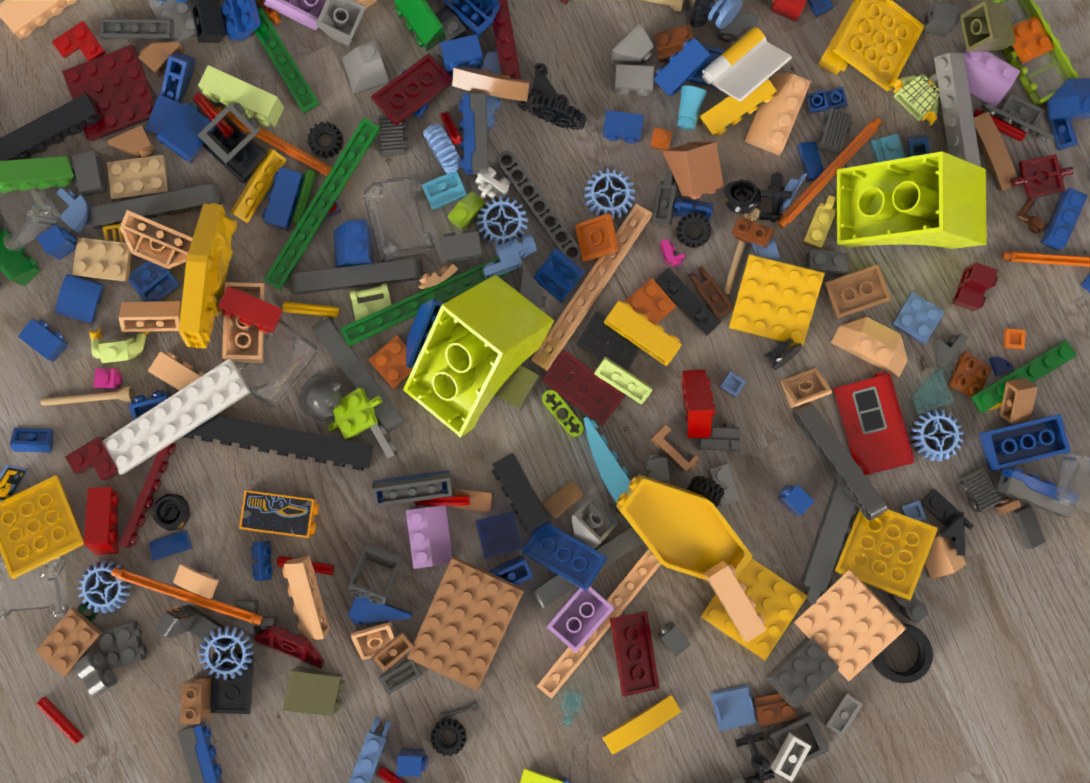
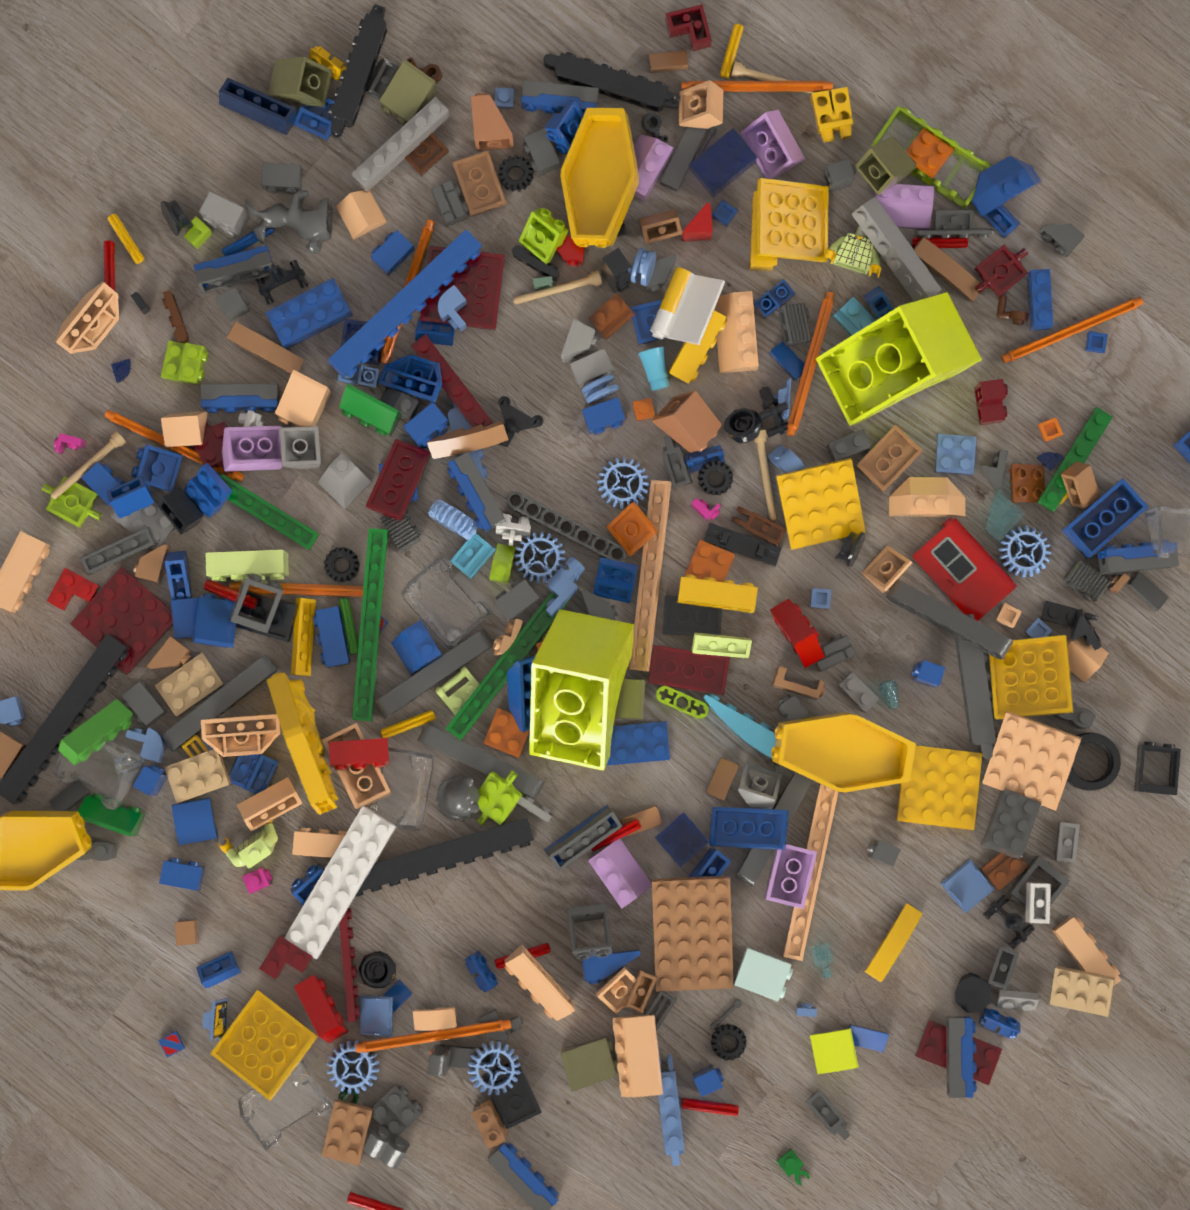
camera: 20 degrees left, 0 degrees up
(20, 392) = (186, 932): none -> medium nougat panel
(125, 394) = (280, 886): tan piece -> none
(148, 552) = (376, 1015): none -> medium blue piece
(278, 514) = (475, 922): panel -> none
(290, 644) = (546, 1032): dark red wing -> none
(359, 708) = (637, 1055): none -> light nougat slope
(451, 128) = (451, 497): red axle -> none
(505, 430) = (639, 743): none -> blue plate
(510, 692) = (763, 974): none -> light aqua brick
(521, 493) = (682, 792): black brick -> none
(532, 744) = (806, 1010): none -> medium blue plate
(556, 112) = (539, 436): black gear -> none
(631, 100) = (598, 389): none -> medium blue head
(634, 653) = (855, 883): dark red plate -> none
(682, 66) = (630, 336): blue brick -> none
(707, 488) = (846, 704): black tyre -> none
(735, 602) = (920, 791): light nougat brick -> none
(752, 232) = (769, 454): dark orange plate -> none
(752, 498) = (890, 693): none -> clear light blue cone
(820, 223) = (825, 413): light yellow hinge -> none
(893, 485) = (1008, 615): none -> light nougat plate
(973, 699) = (1172, 787): none -> black window

